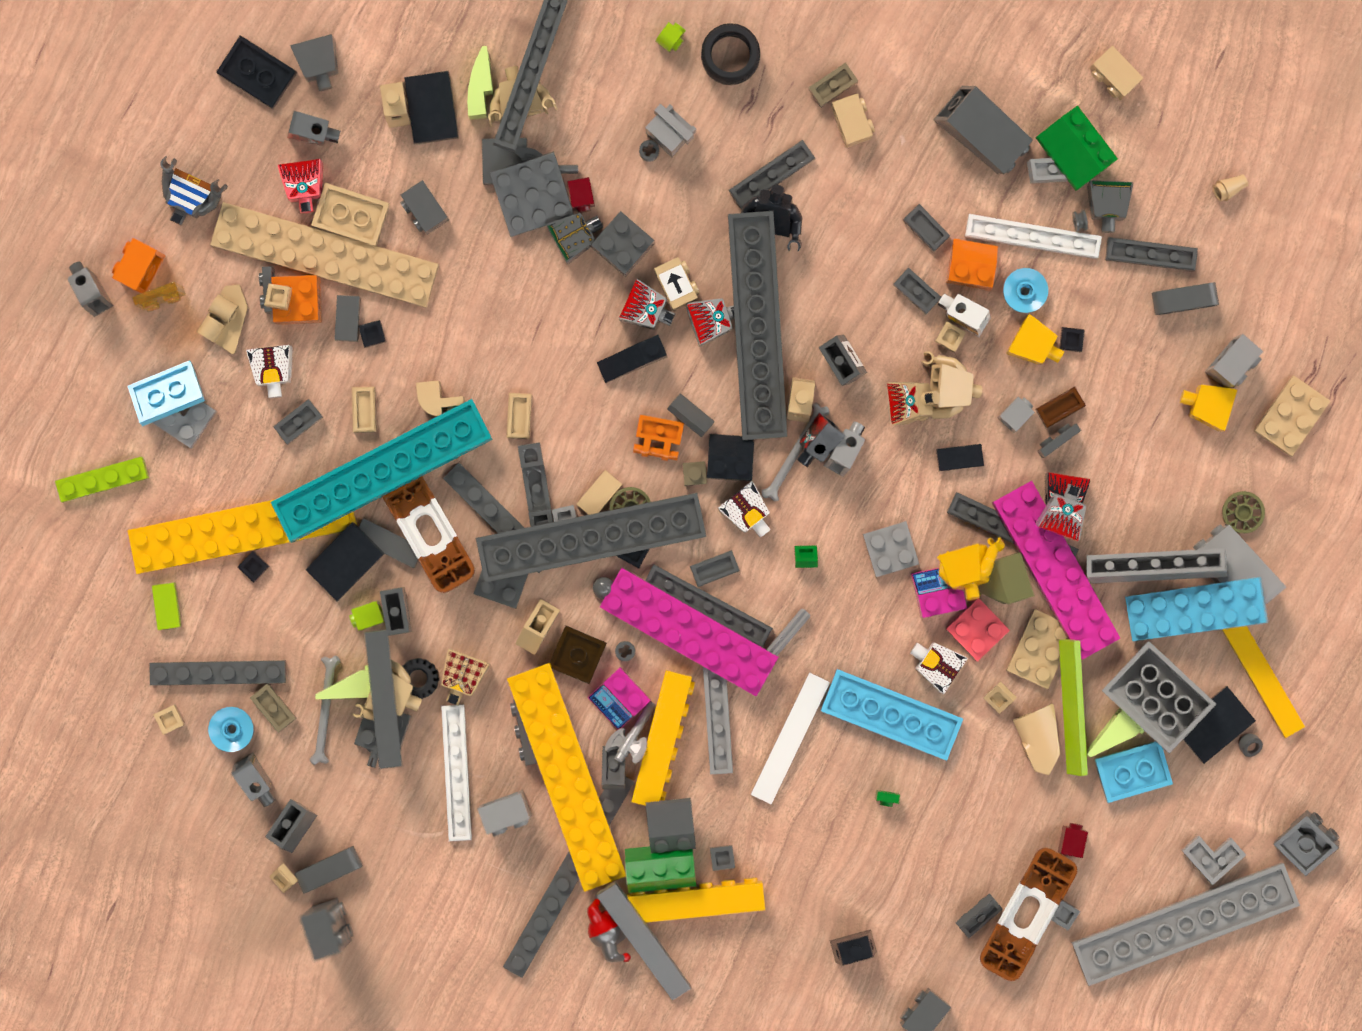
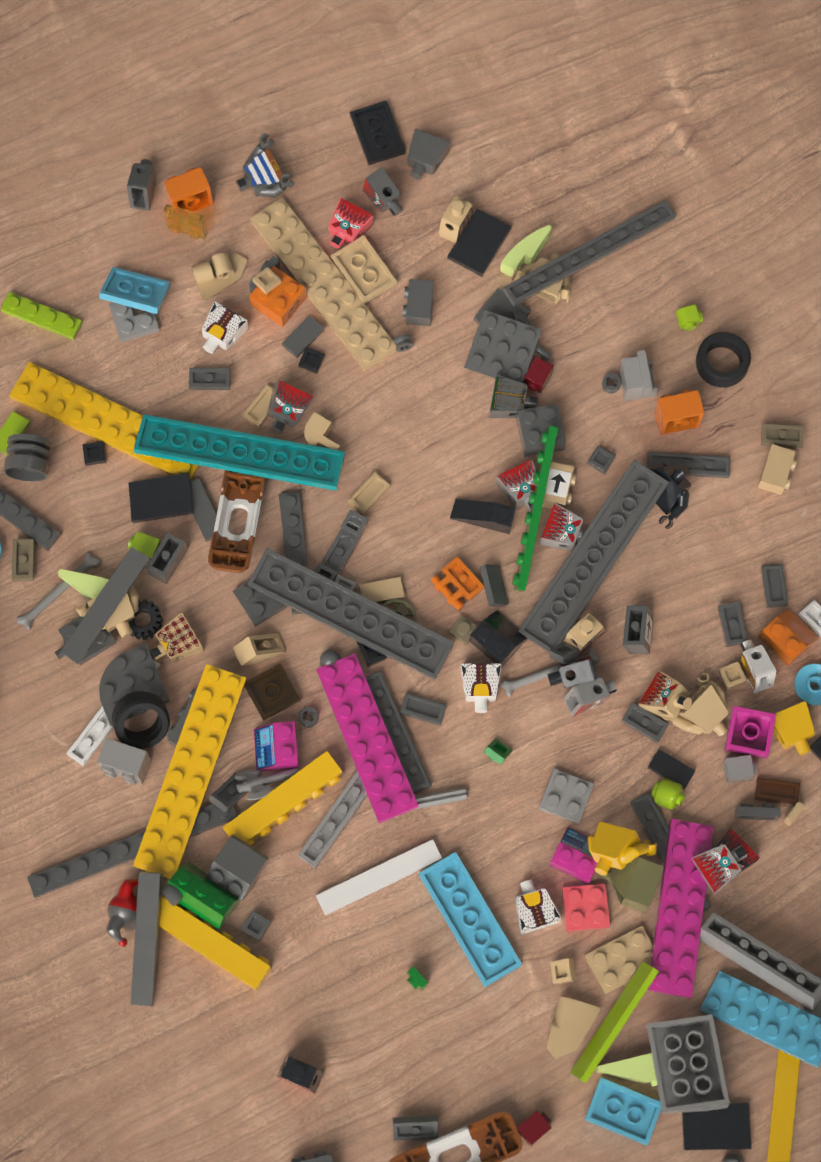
camera: 35 degrees right, 15 degrees down
(202, 618) = (27, 457): none -> dark grey wheel
(387, 394) = (287, 405): none -> torso
(440, 256) = (403, 343): none -> dark grey bush
(456, 743) = (130, 673): none -> dark grey plate
(476, 759) = (135, 701): none -> black tyre
(637, 891) = (172, 894): none -> dark grey piece
(671, 314) = (536, 500): none -> green plate
(694, 228) = (601, 460): none -> dark grey tile
(730, 135) = (679, 412): none -> orange brick
(797, 429) = (564, 653): none -> dark grey plate
(908, 435) = (645, 722): none -> dark grey plate
(974, 482) = (668, 794): none -> lime head
(1004, 378) = (750, 732): none -> dark pink slope
(1089, 417) = (792, 815): none -> tan tile

